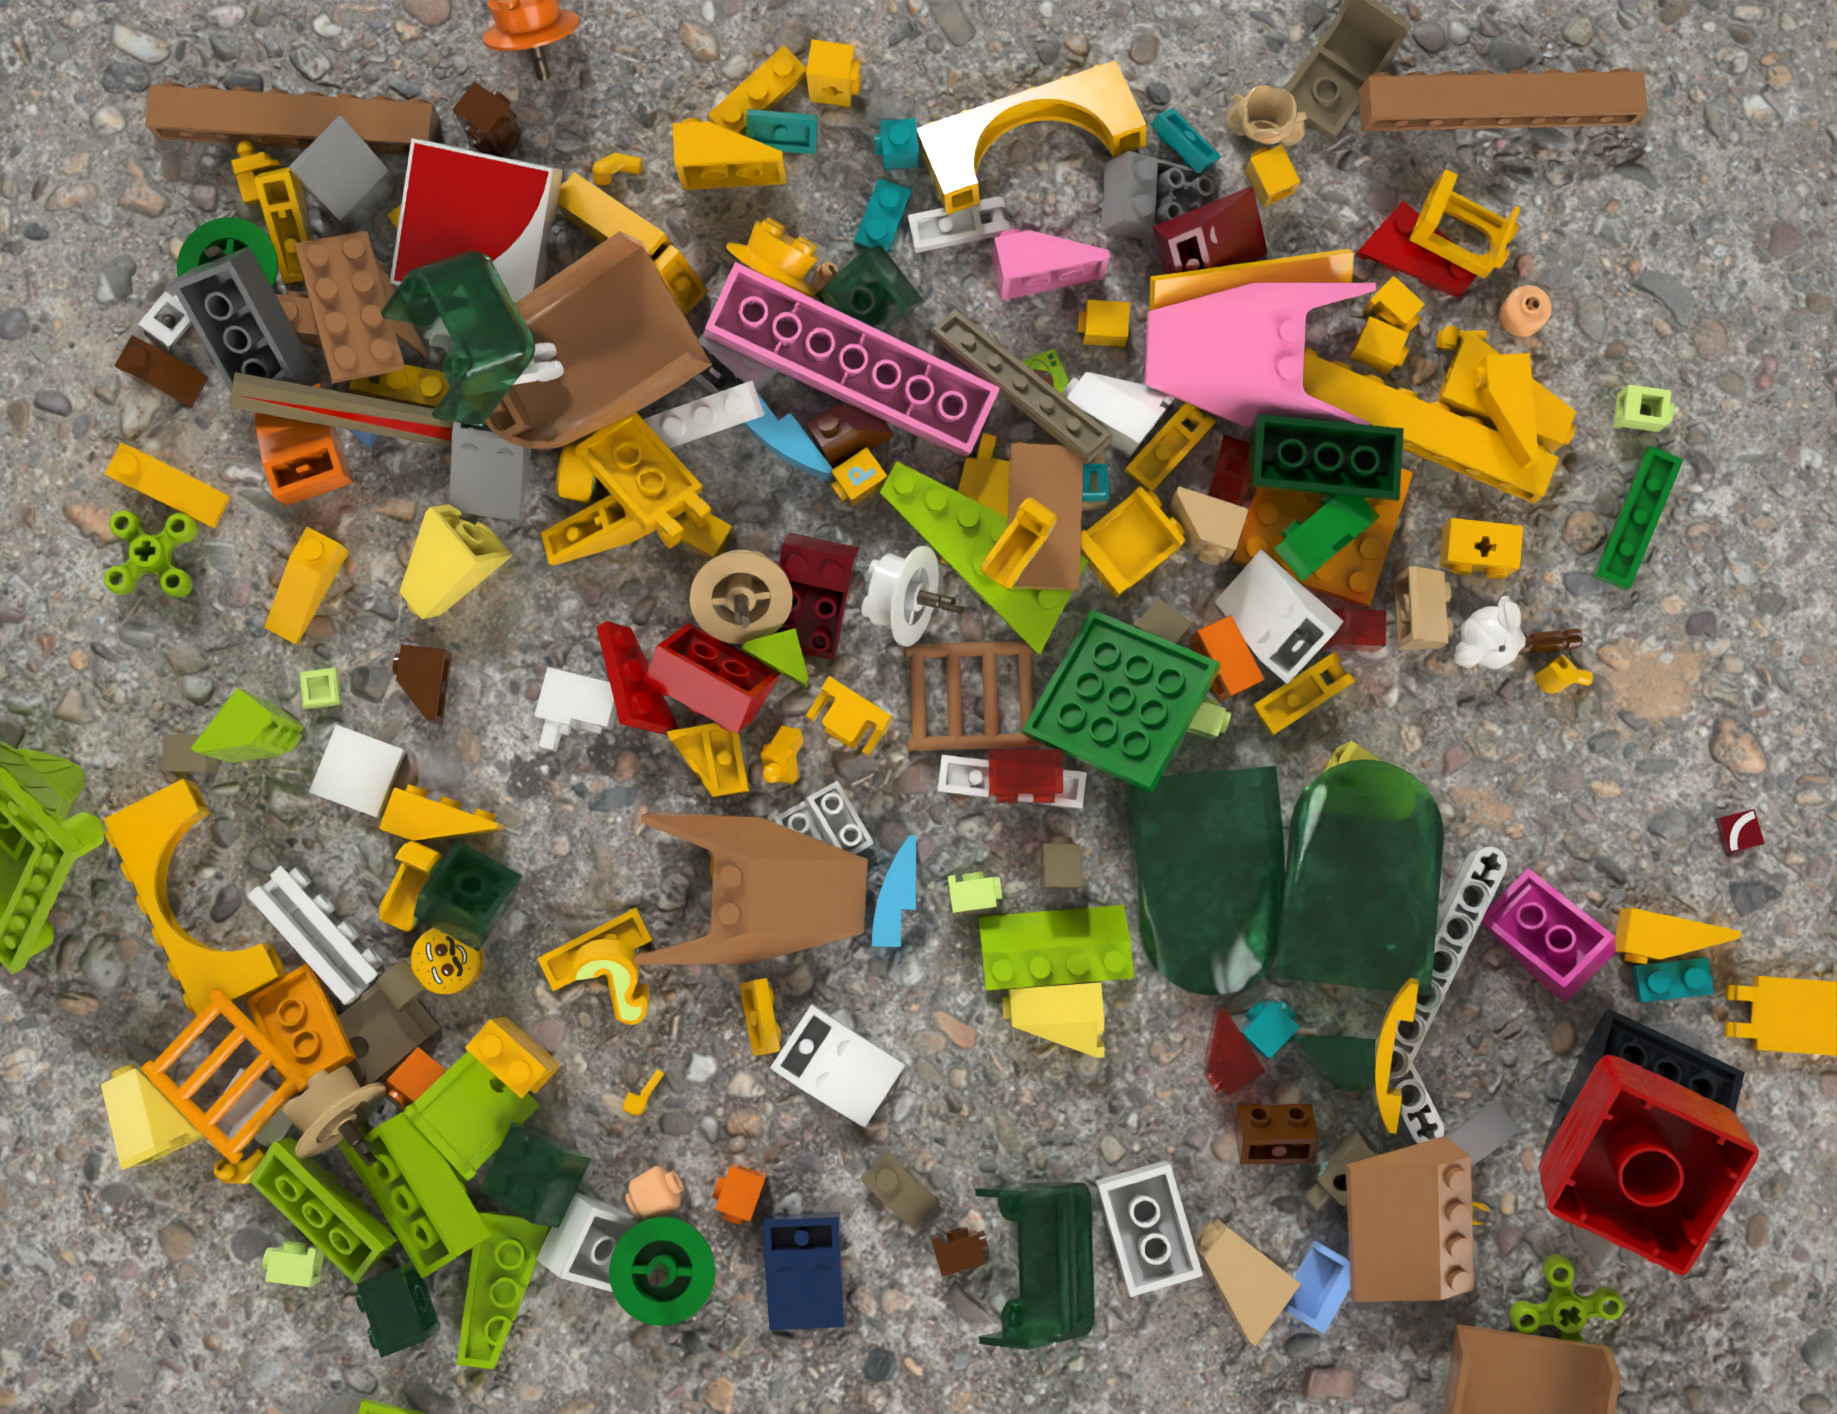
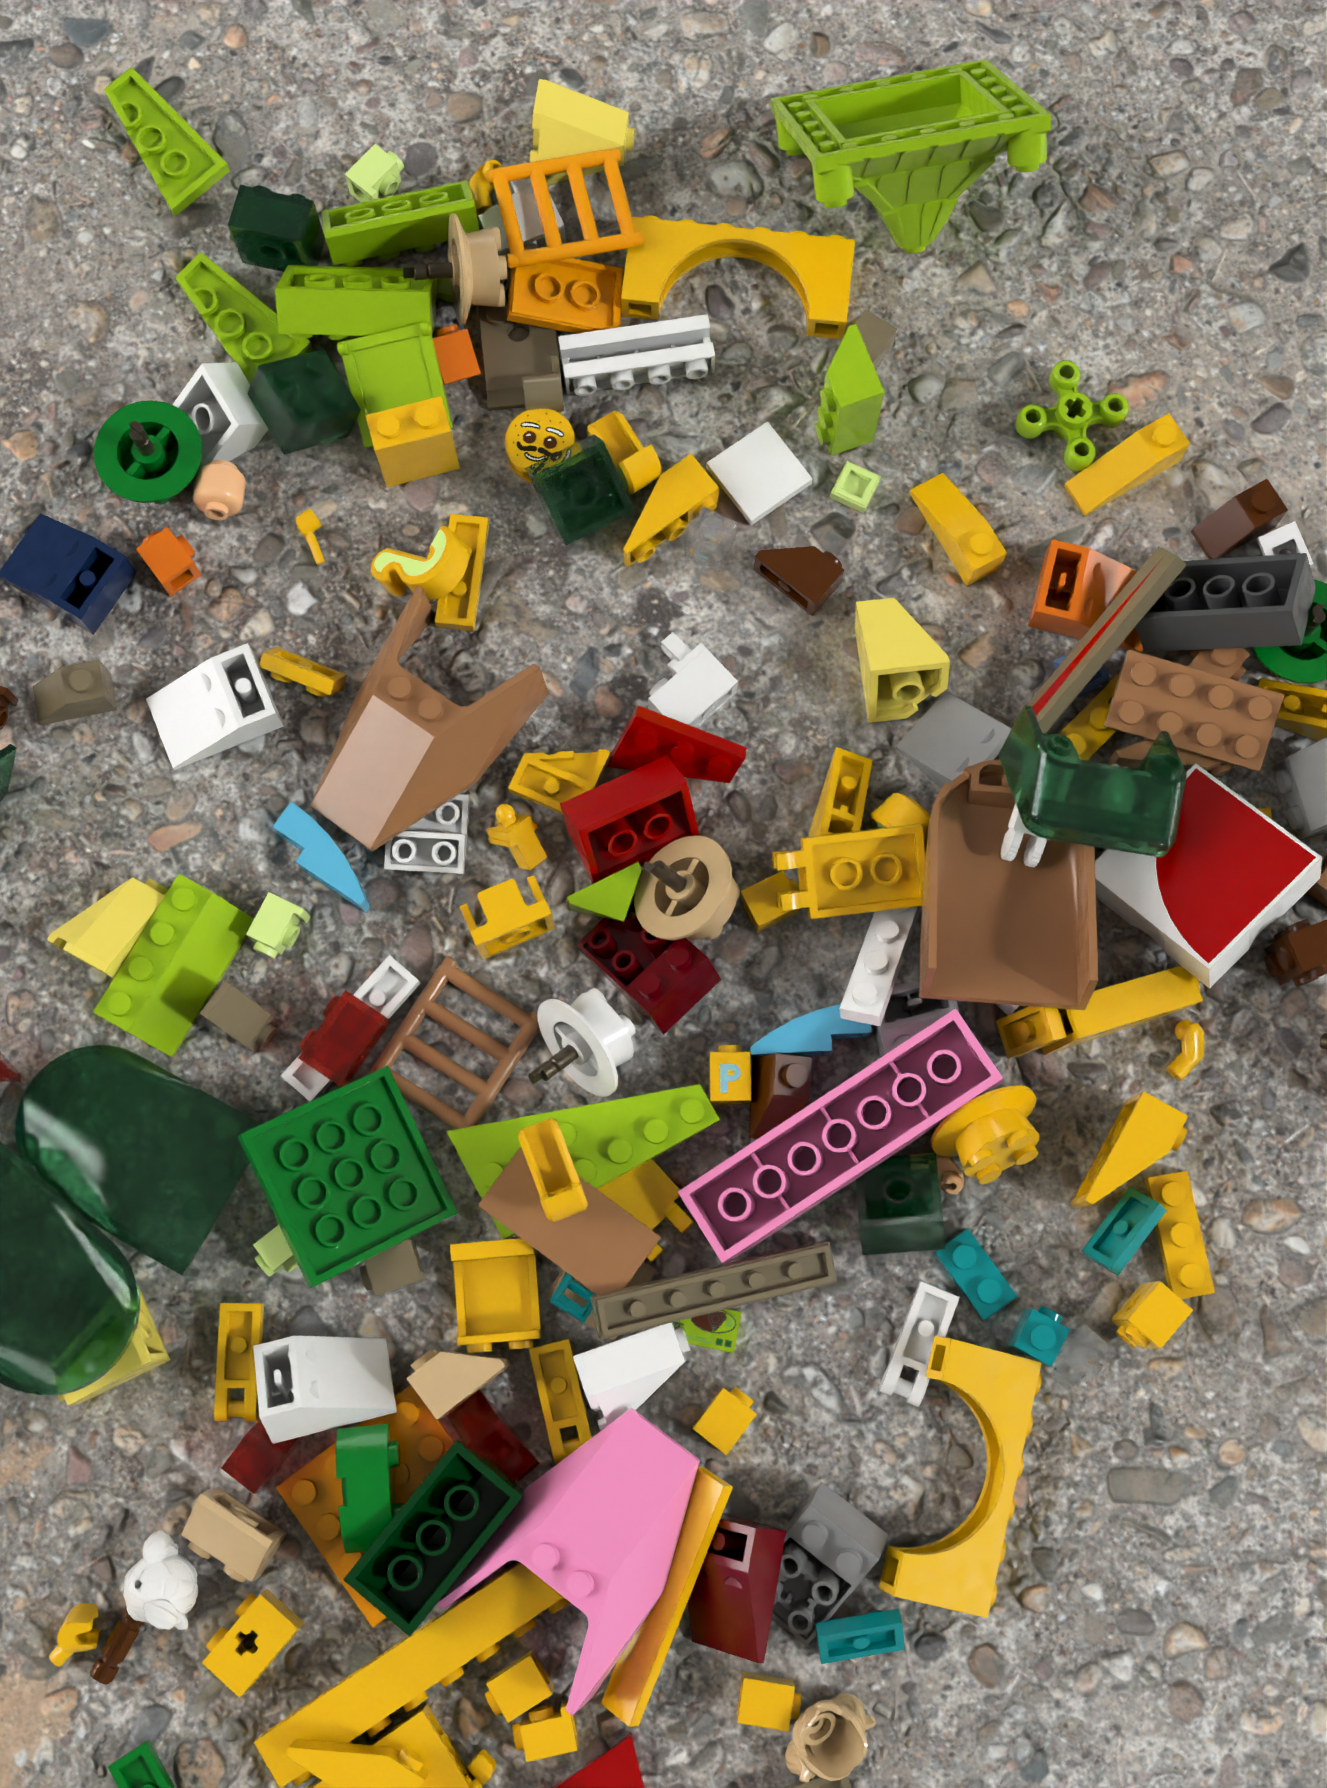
camera: 125 degrees right, 5 degrees down
(1041, 263) = (827, 1387): bright pink slope -> none
(1226, 645) = (322, 1310): orange hinge -> none

